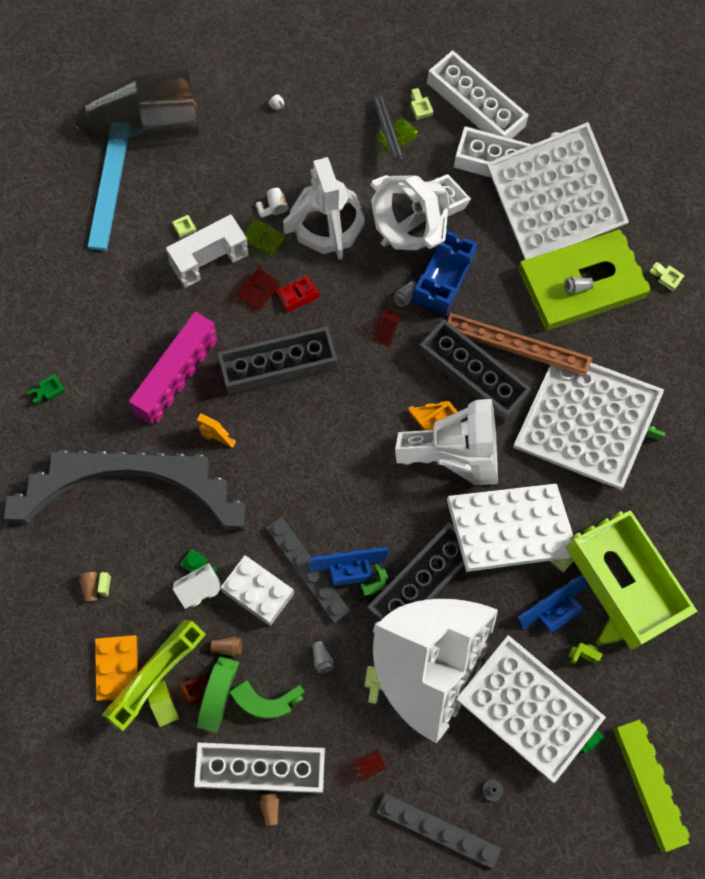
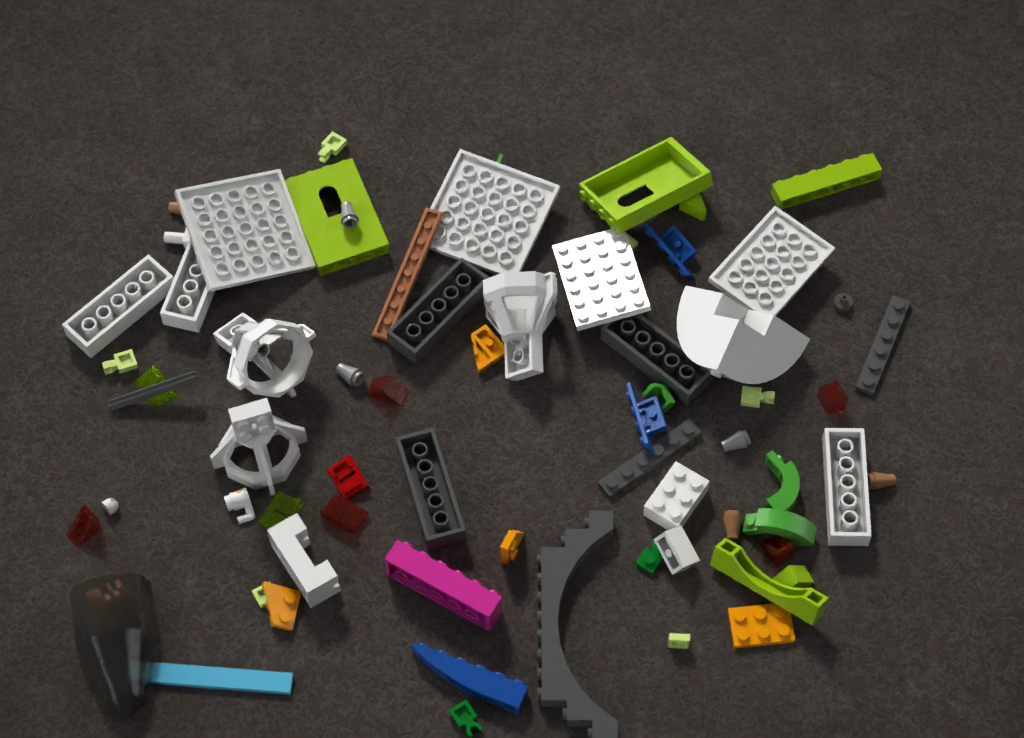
camera: 85 degrees left, 10 degrees down
(83, 396) = (473, 679): none -> blue slope
(89, 585) = (678, 656): medium nougat cone -> none
(168, 235) = (281, 604): none -> light orange wing
(257, 84) = (84, 527): none -> clear red slope
(445, 274) = (335, 338): blue piece -> none
(586, 651) = (713, 230): lime bracket -> none

